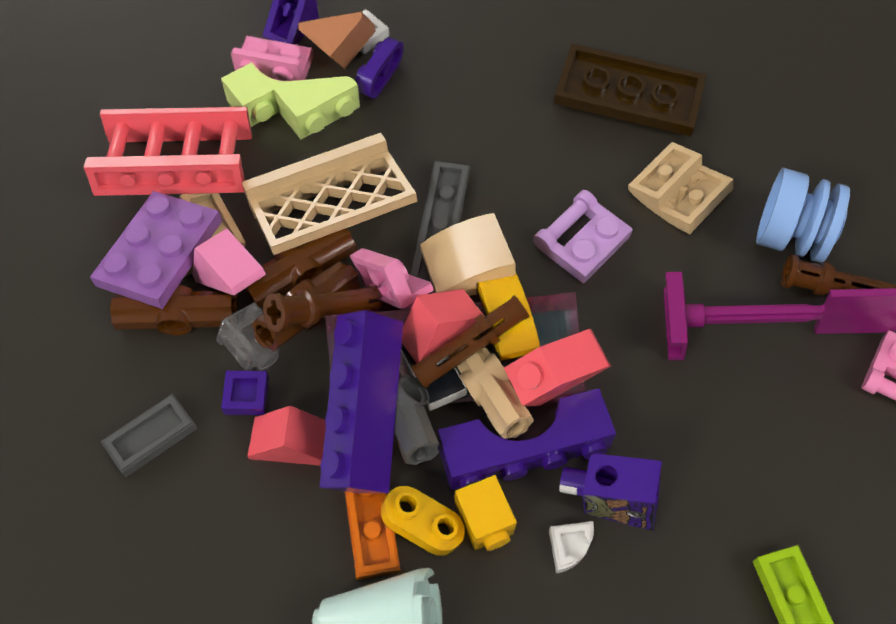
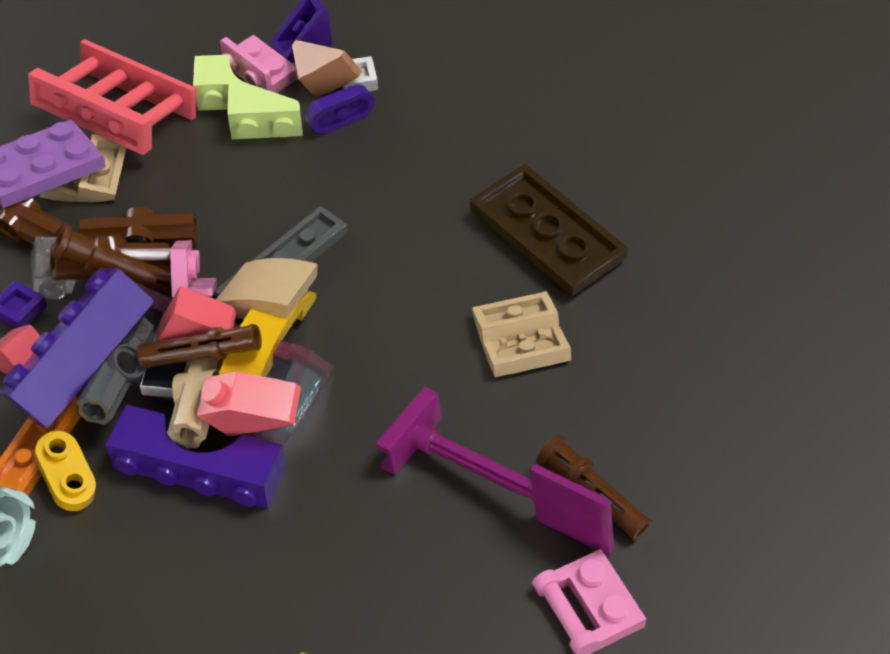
camera: 35 degrees right, 10 degrees down
(225, 264) = (74, 195): bright pink slope -> none
(324, 177) = (195, 170): tan fence -> none
(485, 514) = (115, 492): yellow brick -> none
(570, 544) = (166, 558): white tile -> none
(591, 245) = (399, 339): lavender plate -> none
(617, 488) = (222, 518): dark purple torso -> none
(811, 218) = (593, 403): light blue wheel -> none

